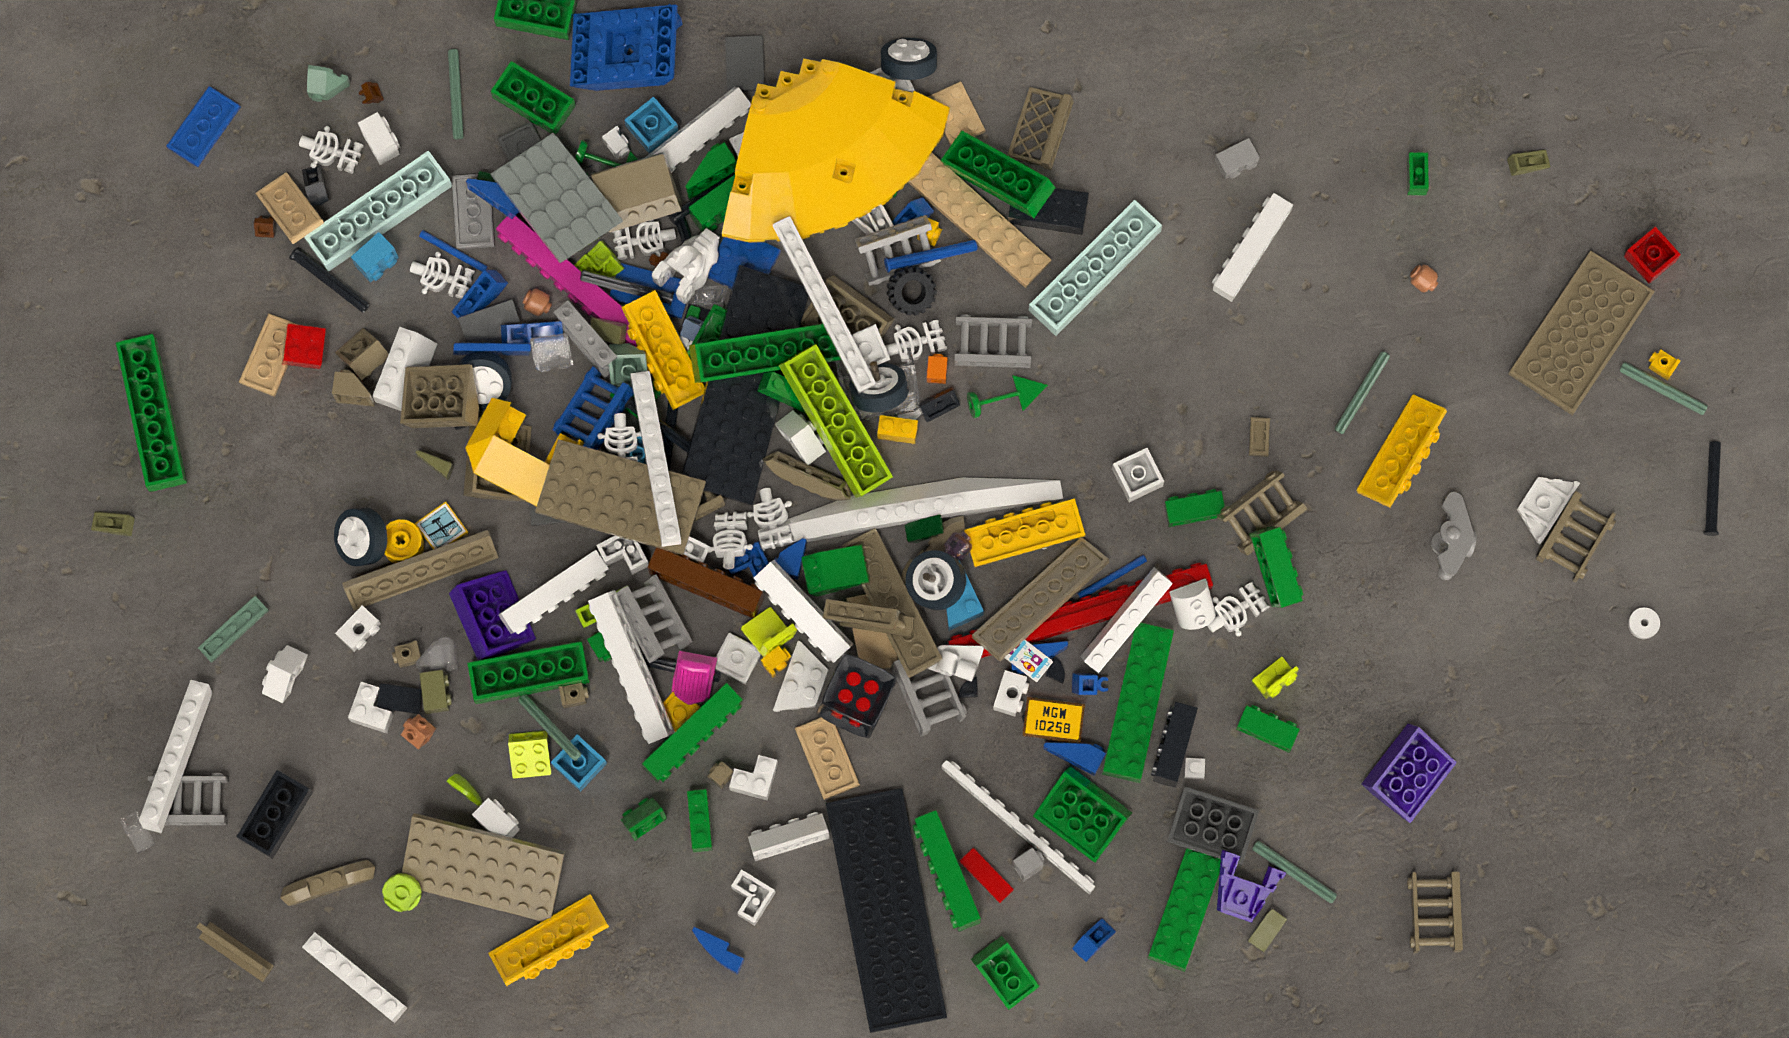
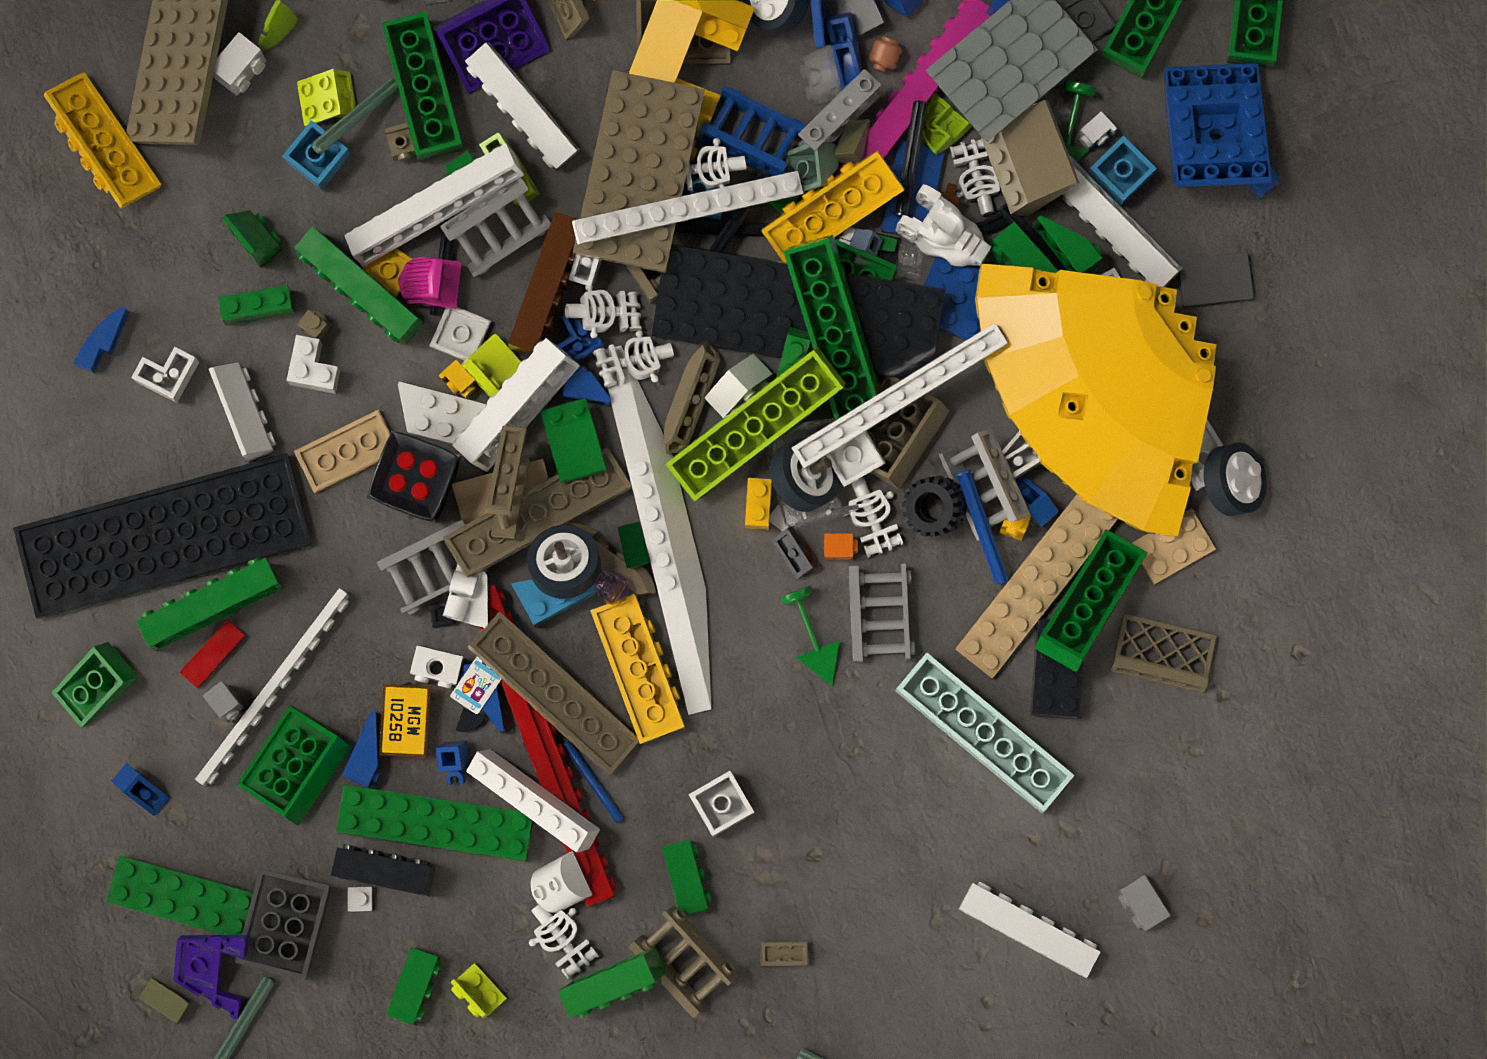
camera: 85 degrees right, 5 degrees up
(619, 548) = (572, 196): white brick -> none

